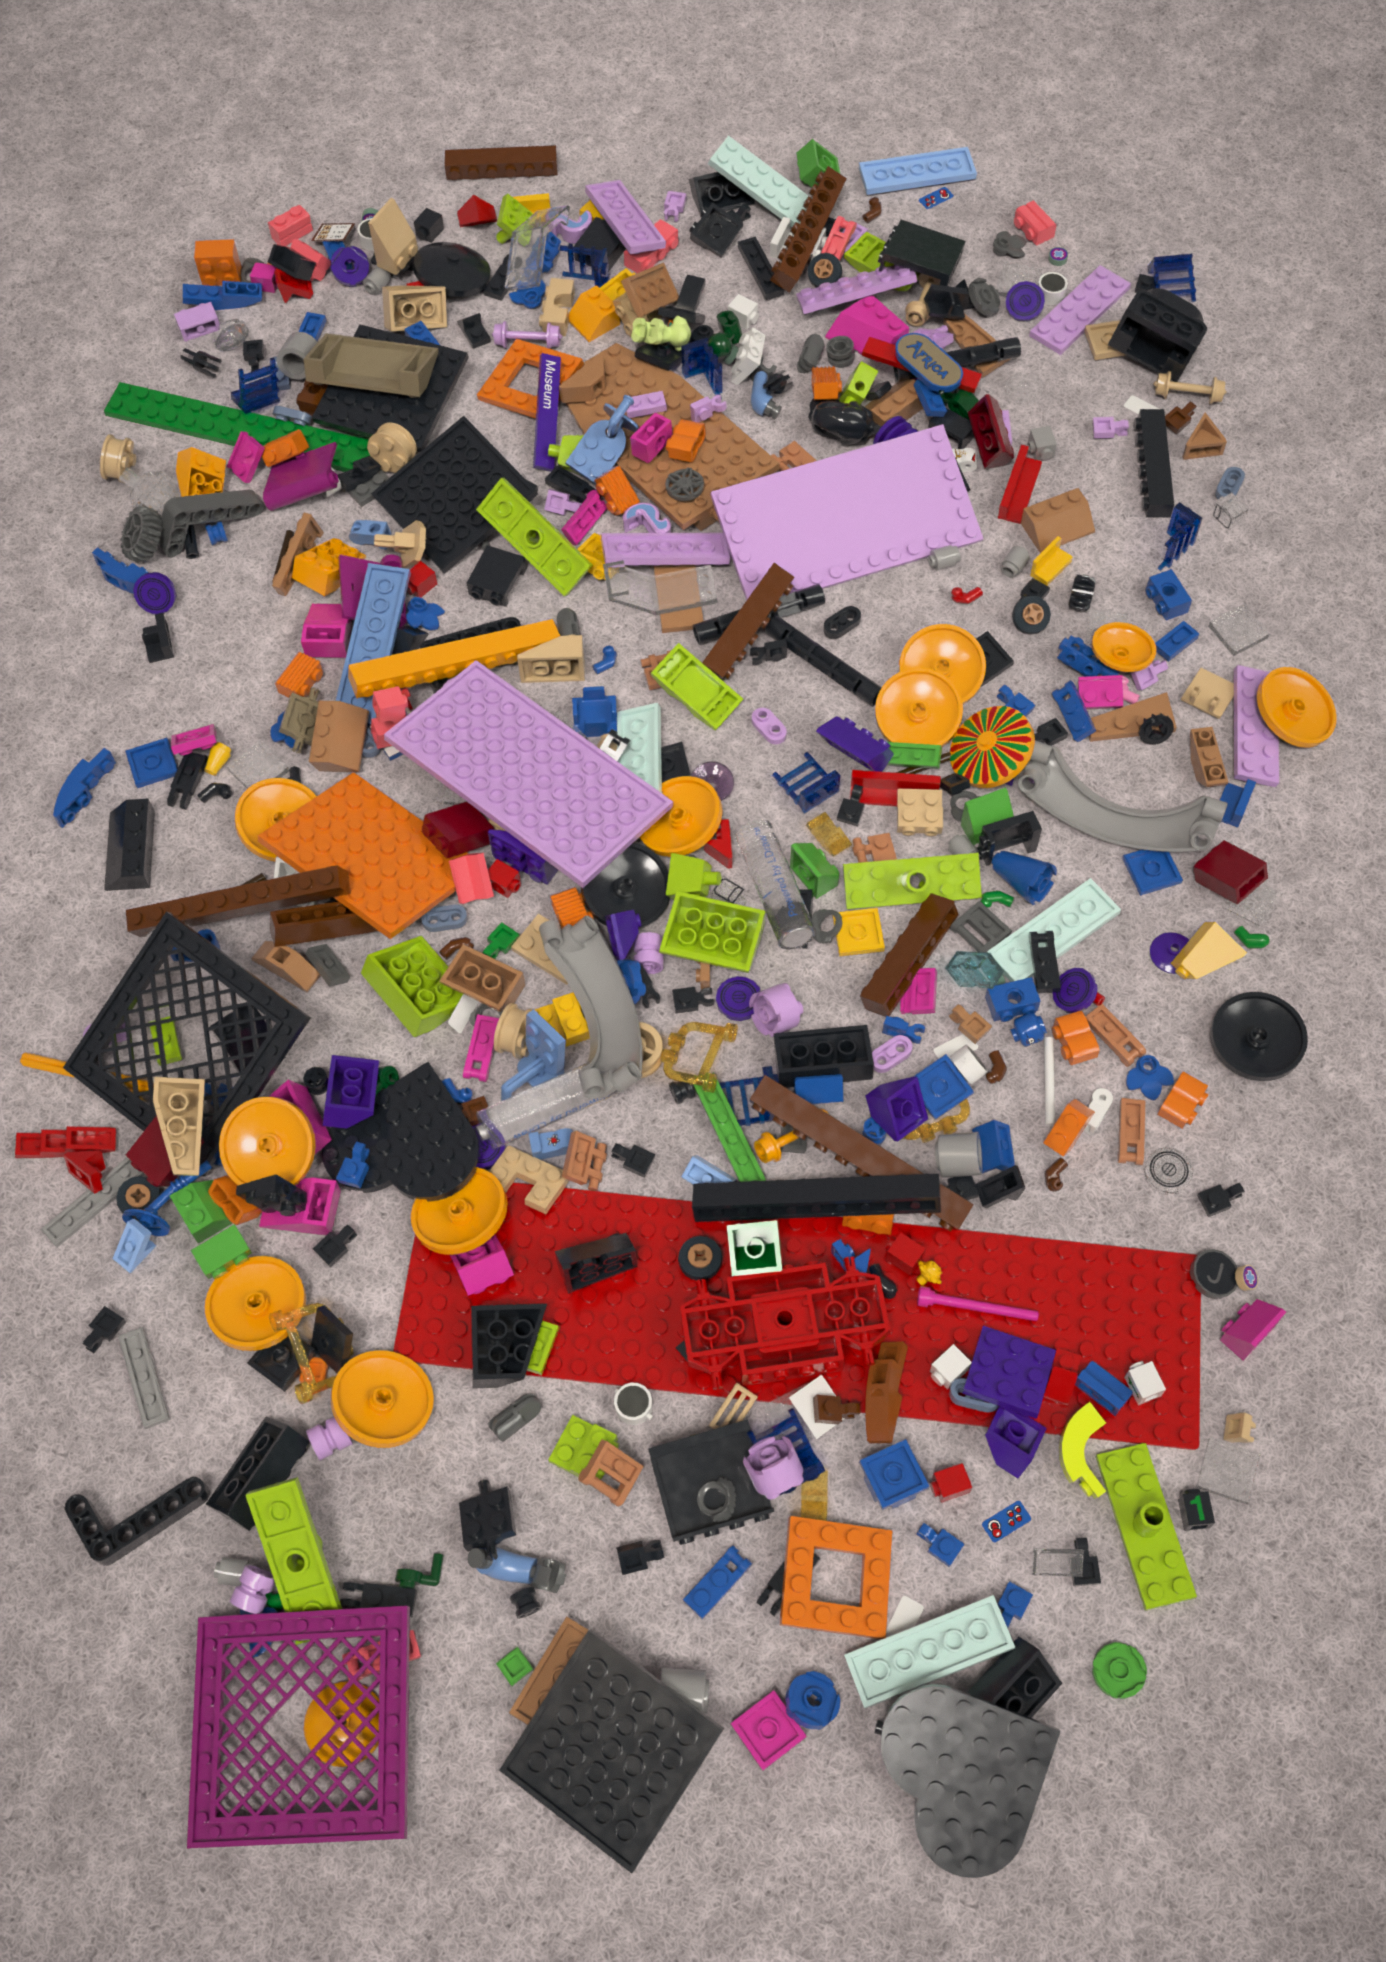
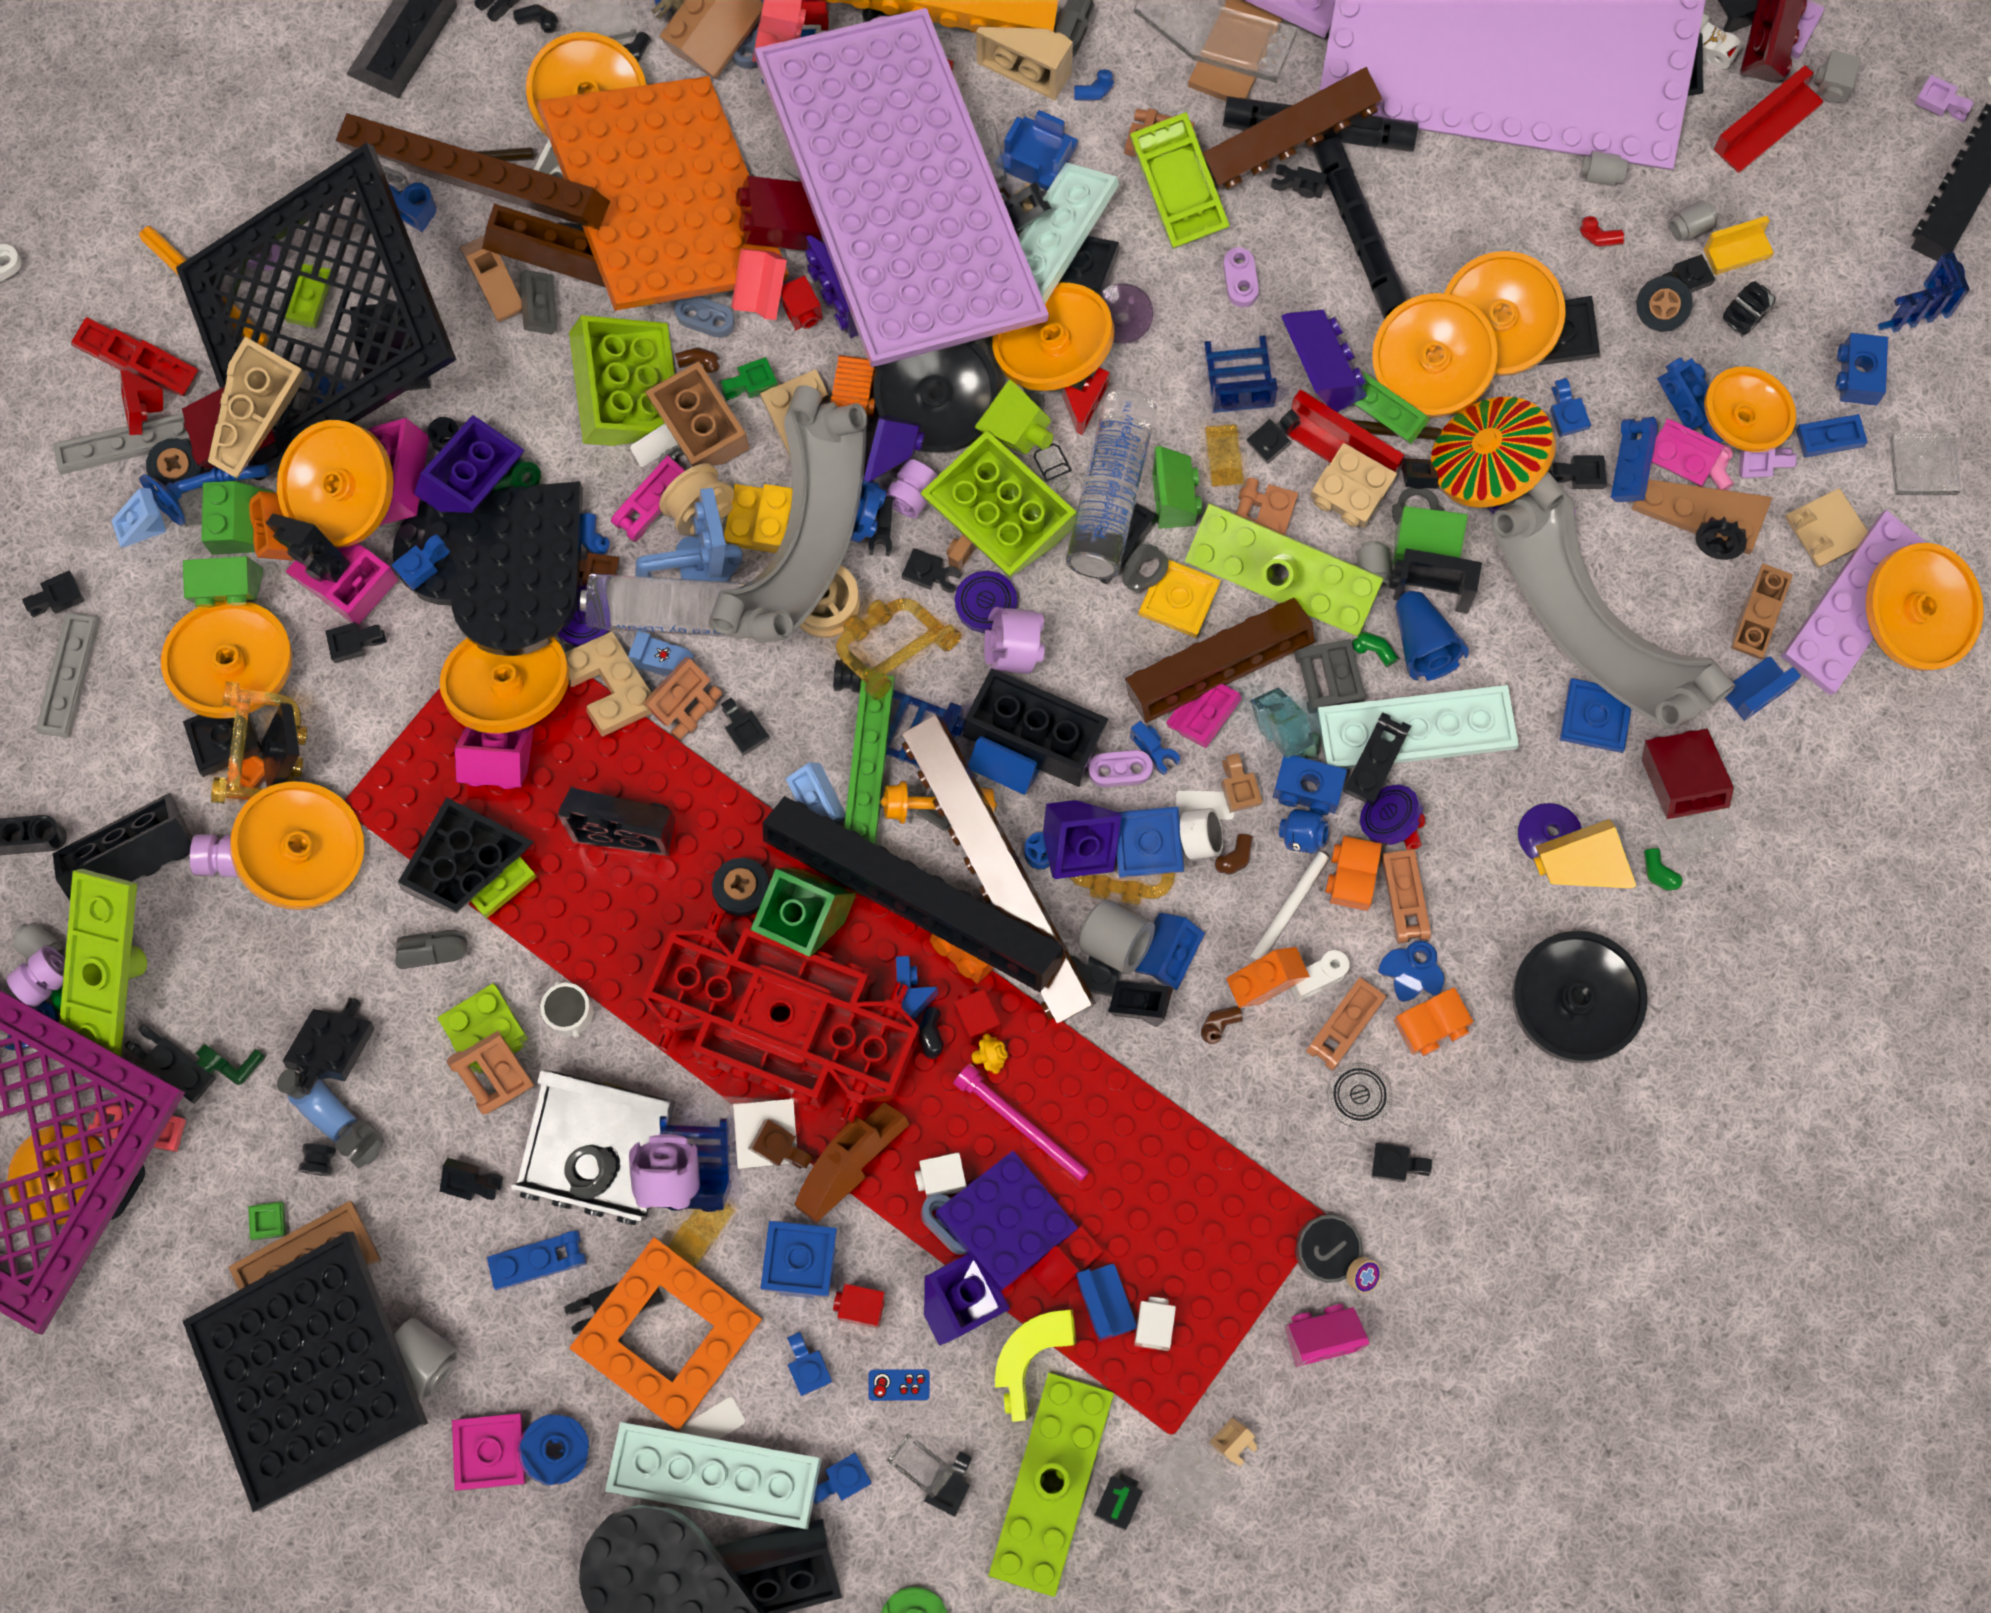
camera: 30 degrees right, 10 degrees up
(745, 1392) = (695, 1070): tan tile -> none
(841, 623) = (1416, 186): black plate -> none
(1061, 516) = (1789, 191): medium nougat slope -> none

